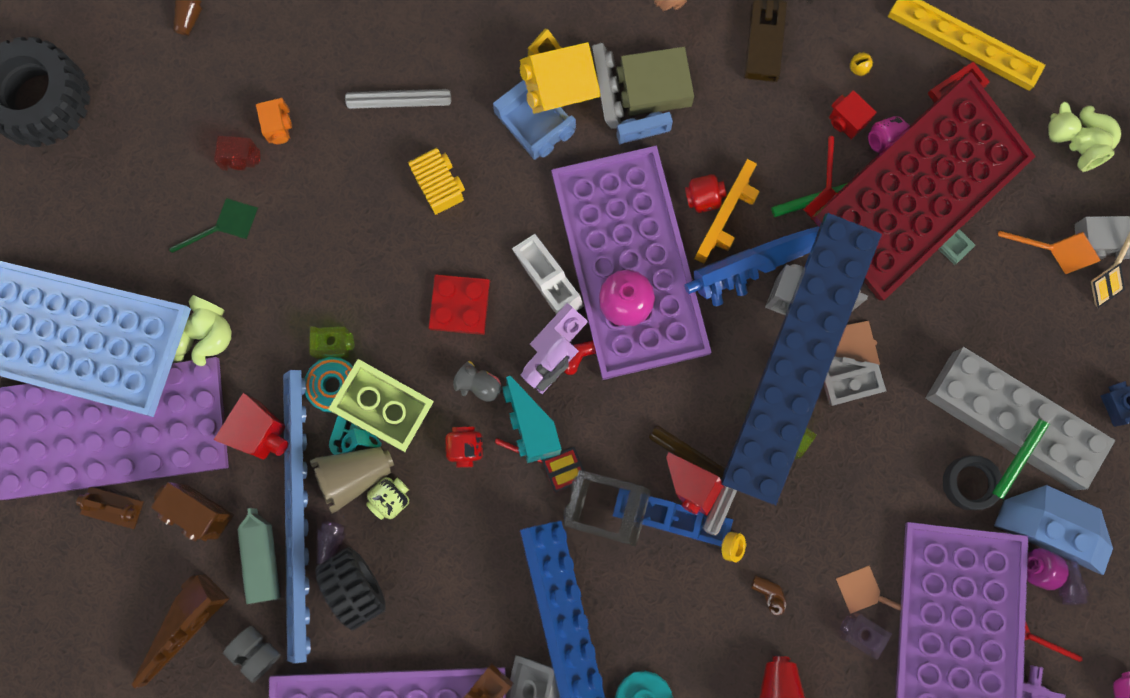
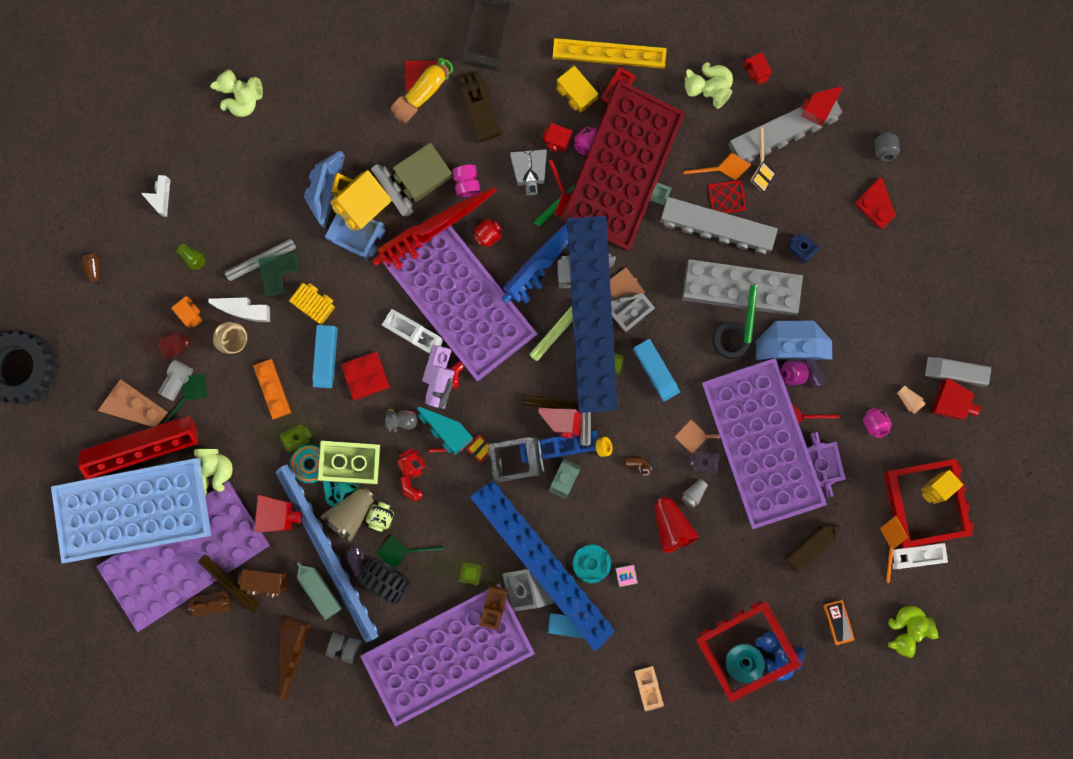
camera: 30 degrees left, 5 degrees up
(124, 260) = (138, 447): none -> red brick
(146, 490) = (230, 584): none -> dark brown axle
(148, 206) = (132, 405): none -> nougat wing
(221, 194) = (176, 376): none -> light grey piece
(309, 174) = (229, 337): none -> tan helmet
(315, 58) = (192, 257): none -> clear neon green cone
(332, 266) = (272, 389): none -> orange plate
(345, 147) = (242, 309): none -> white slope
(385, 555) = (394, 551): none -> dark green piece
(408, 114) = (272, 269): none -> clear green plate
(419, 254) = (324, 356): none -> dark azure piece
(443, 482) = (409, 491): none -> red arm
(472, 634) = (470, 573): none -> clear neon green brick
(514, 43) = (319, 193): none -> medium blue wedge
(623, 154) = (425, 231): none -> red piece
(626, 298) = (469, 324): dark pink cylinder -> none
(637, 129) = (433, 203): medium blue plate -> none
(660, 566) = (564, 479): none -> sand green torso
(708, 115) = (466, 182): none -> dark pink wheel
(731, 364) = (552, 335): none -> yellowish green axle
(741, 191) = (508, 221): light orange hinge -> none
(797, 137) = (529, 169): none -> light grey torso
(829, 673) = (694, 494): none -> light grey cone
(851, 476) = (656, 370): none -> dark azure piece
(864, 67) = (551, 102): yellow hinge -> none
(904, 66) = (576, 89): none -> yellow brick
(1021, 323) = (718, 225): none -> light grey brick
(1067, 297) = (725, 184): none -> red window

